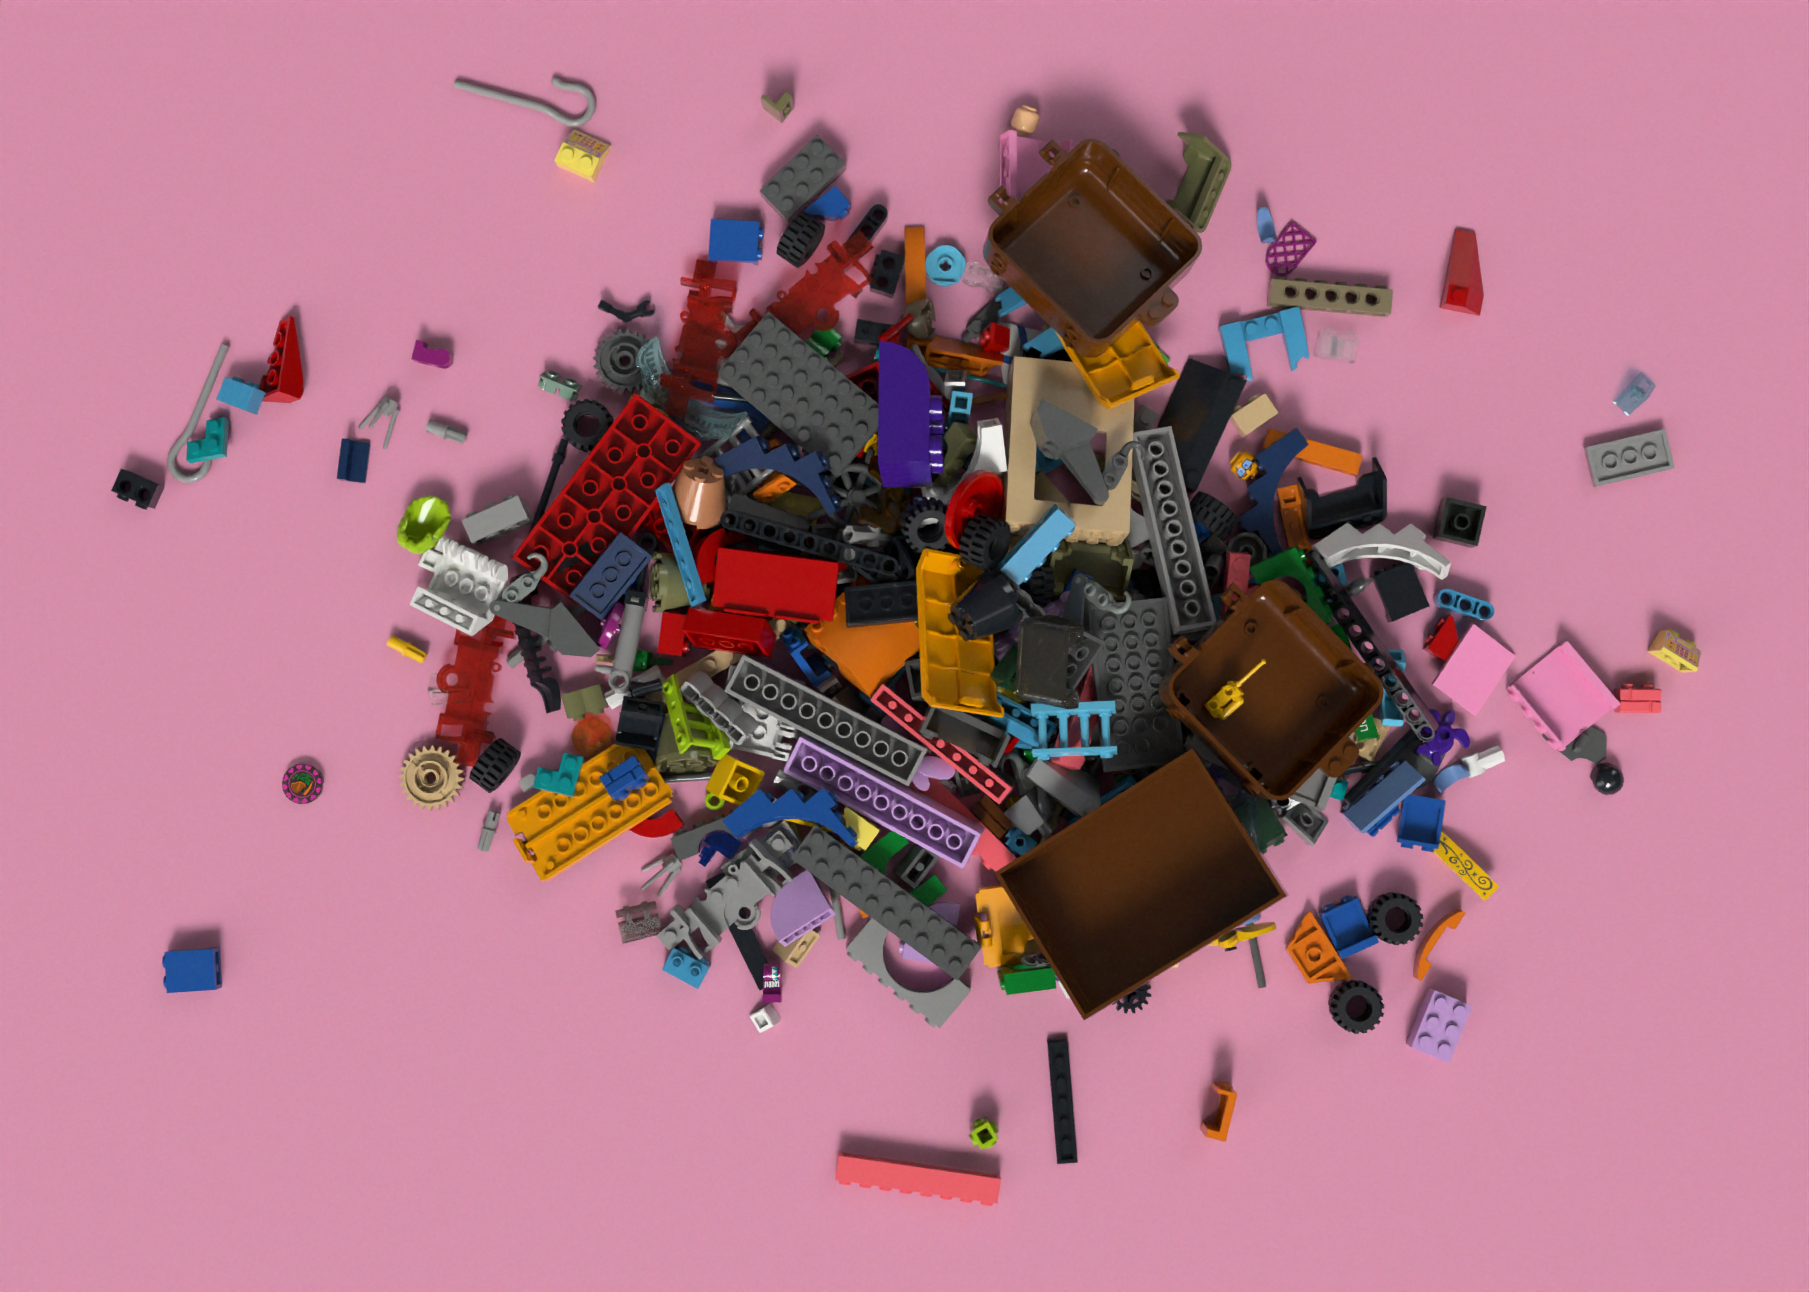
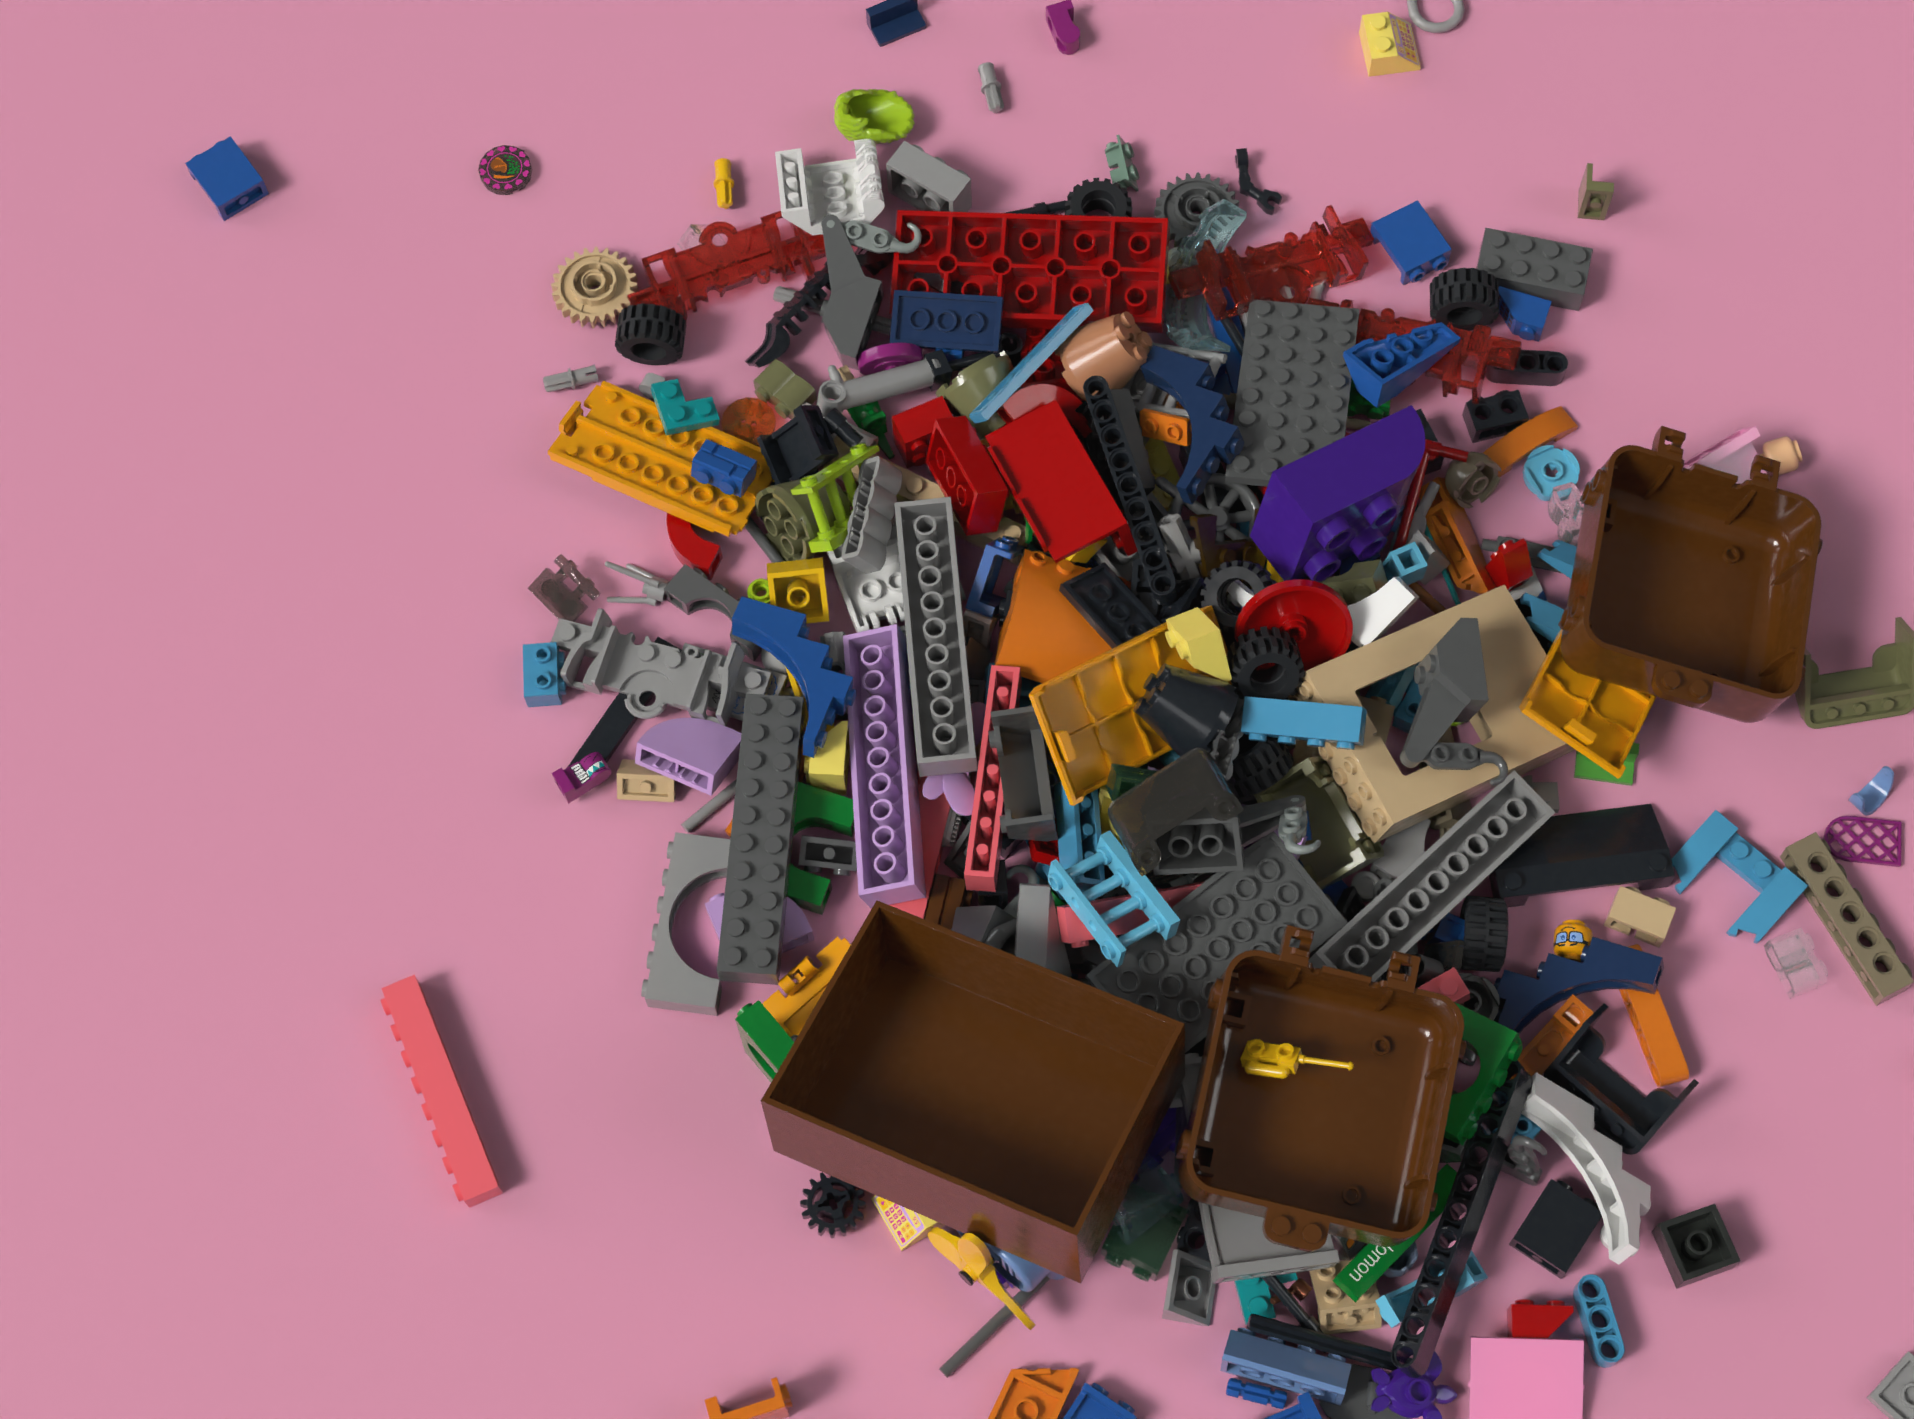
camera: 60 degrees right, 20 degrees down
(386, 408) = (976, 17): light grey plant -> none
(430, 560) = (839, 150): white tile -> none
(721, 842) = (712, 624): clear blue brick -> none
(765, 1018) = (535, 800): white slope -> none
(821, 318) = (1390, 365): none -> blue wedge
(949, 576) = (1198, 642): none -> light yellow slope
(987, 1140) = (539, 1125): lime brick -> none
(1062, 1101) = (641, 1211): black tile -> none

